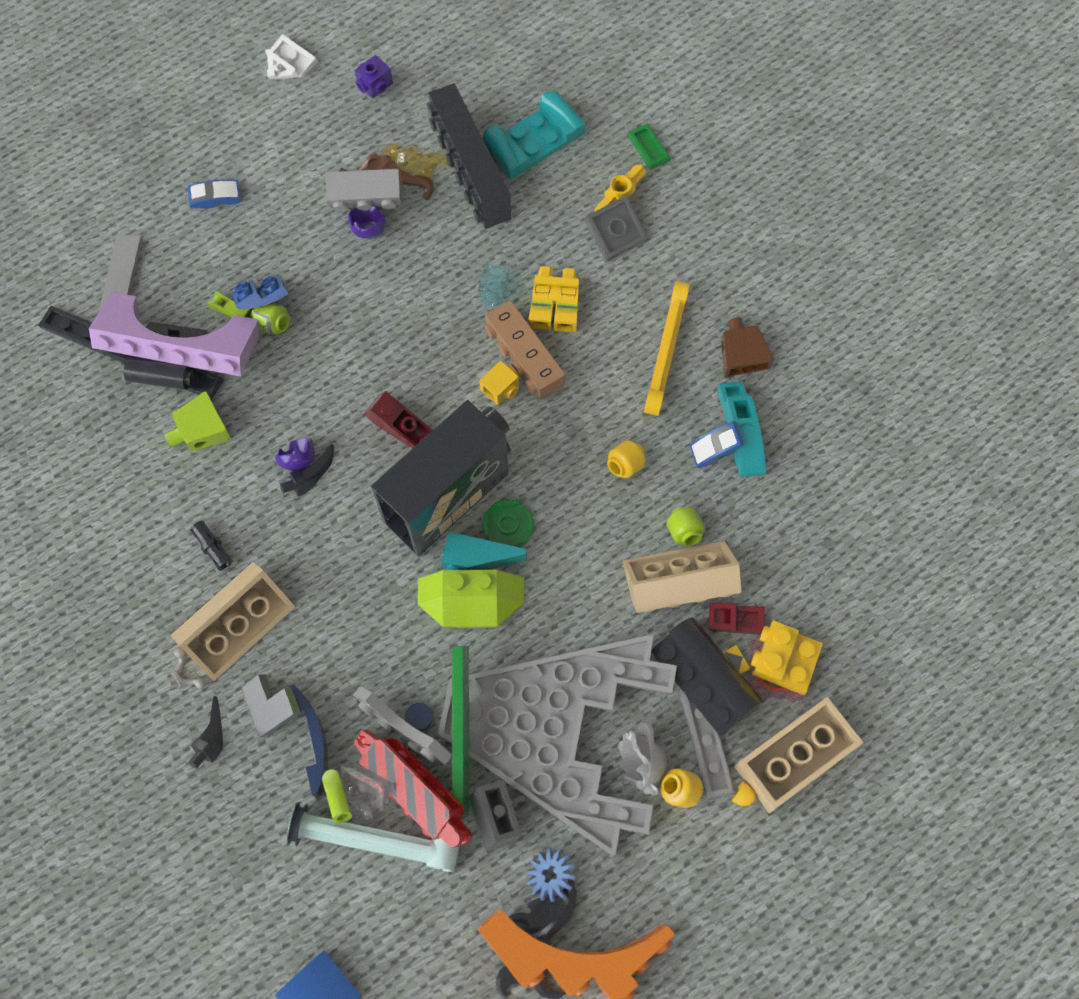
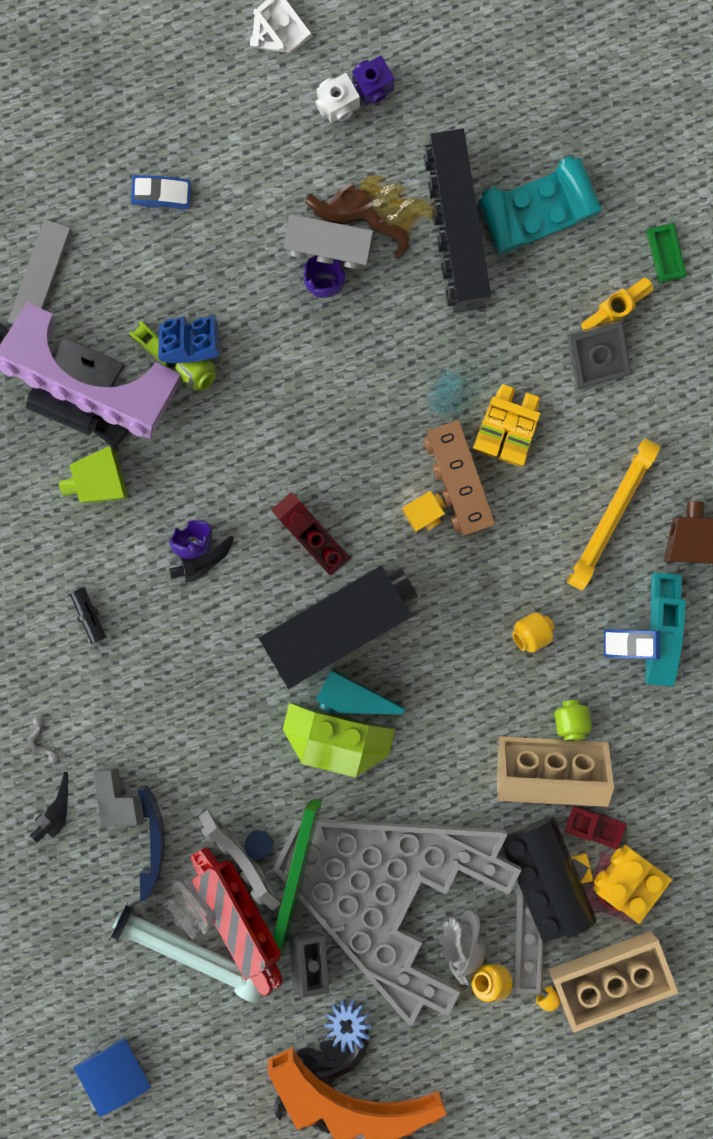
camera: 15 degrees right, 20 degrees up
(233, 621) = (95, 703): tan slope -> none
(336, 796) = (163, 908): lime bar -> none
(348, 94) = (337, 98): none -> white brick
(515, 522) = (385, 664): green tile -> none

